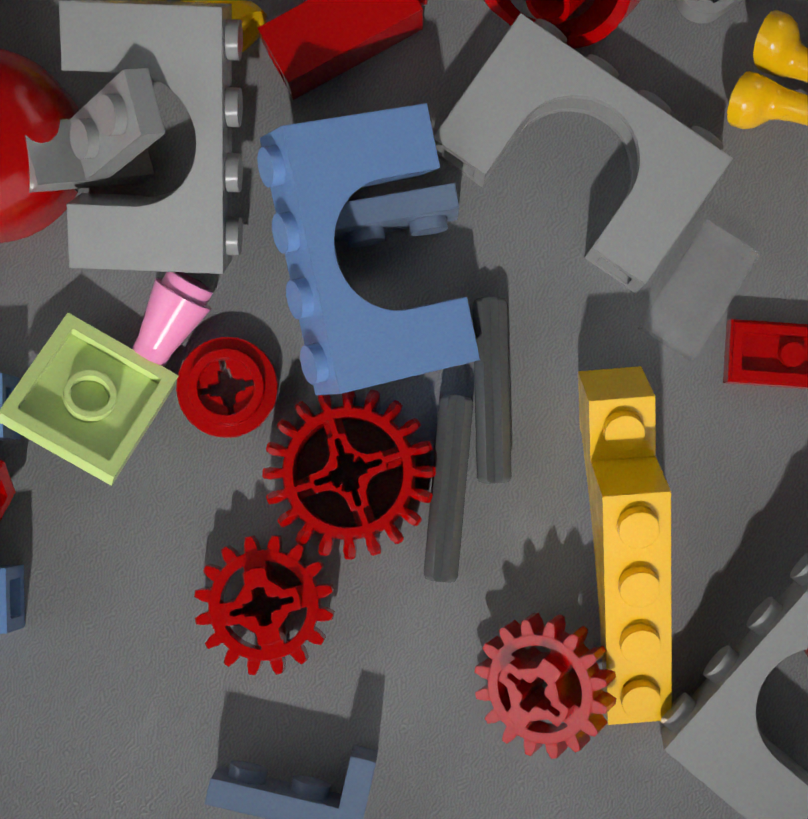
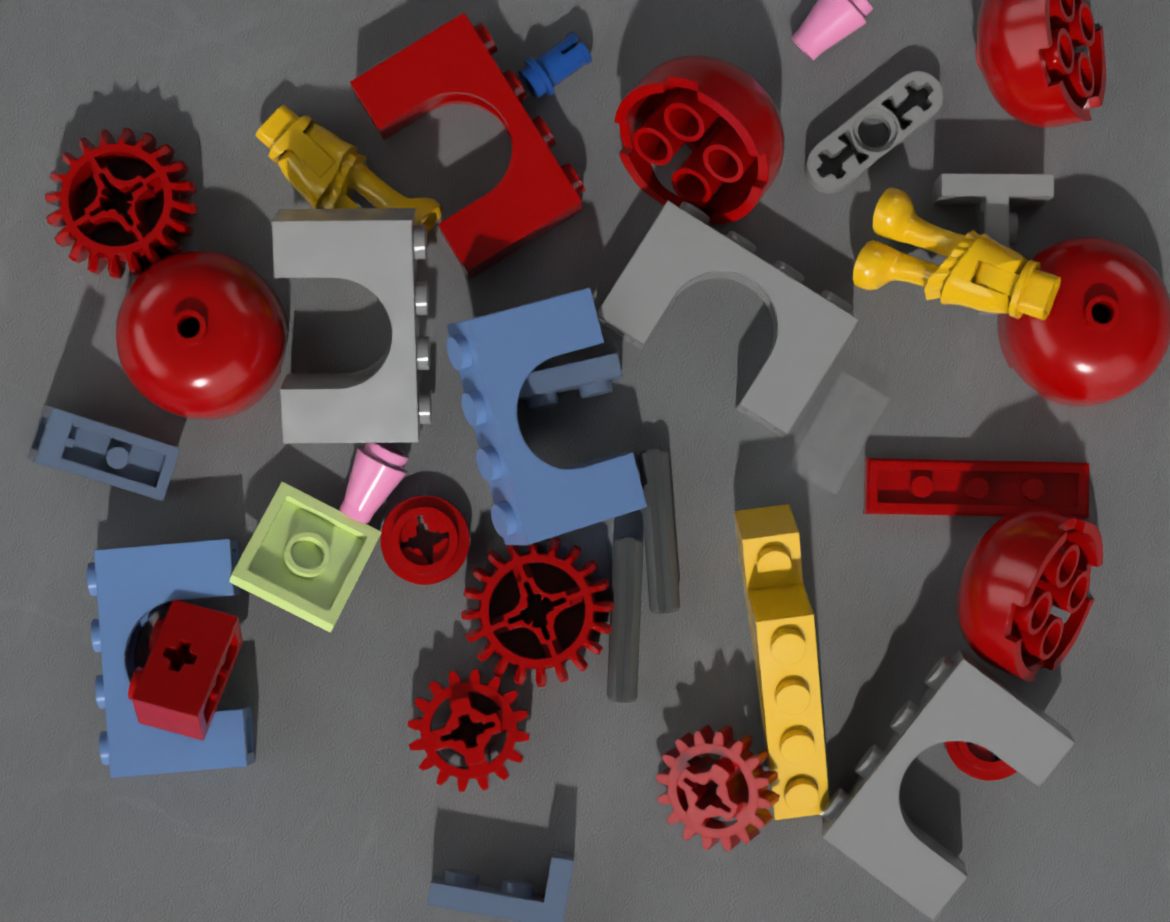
camera: 15 degrees left, 0 degrees up
(103, 140) = (308, 331): light grey bracket -> none

